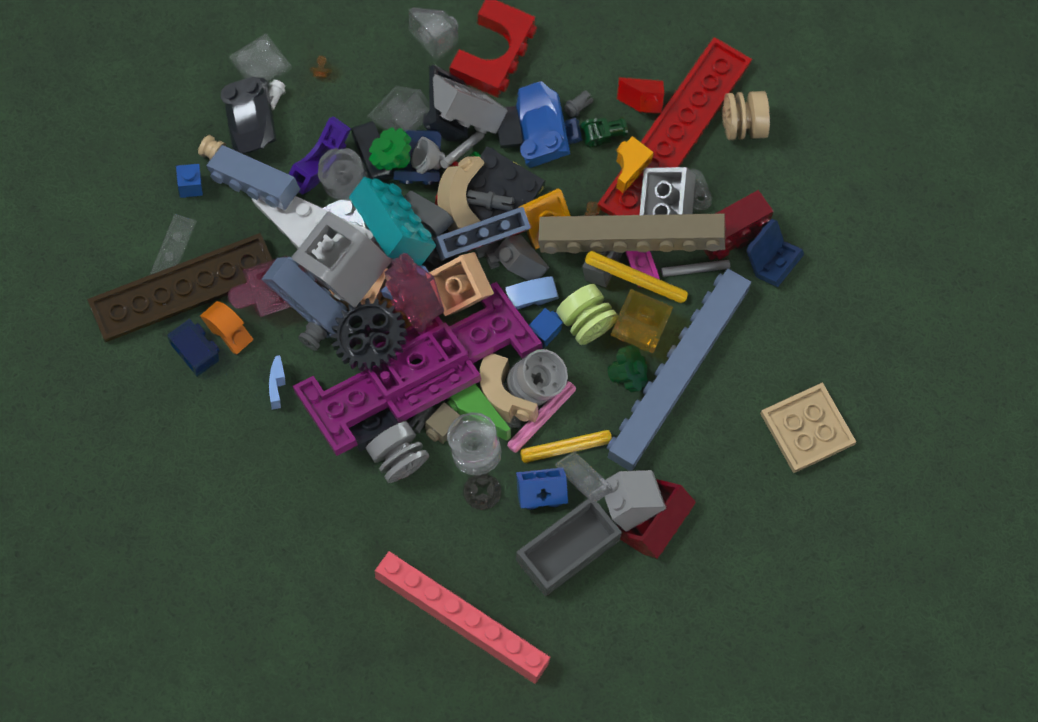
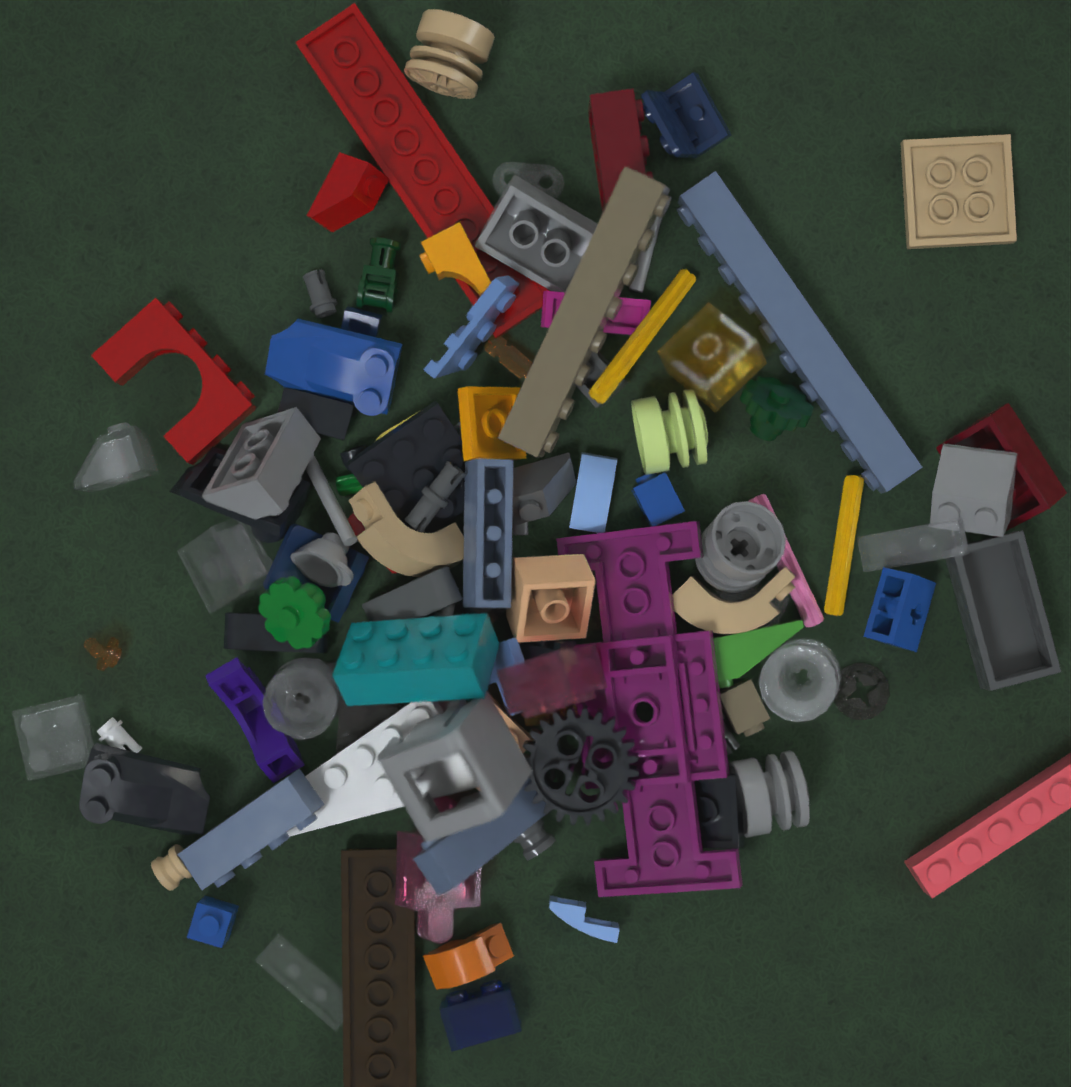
camera: 60 degrees left, 20 degrees up
(587, 185) = (465, 340): none -> medium blue wing

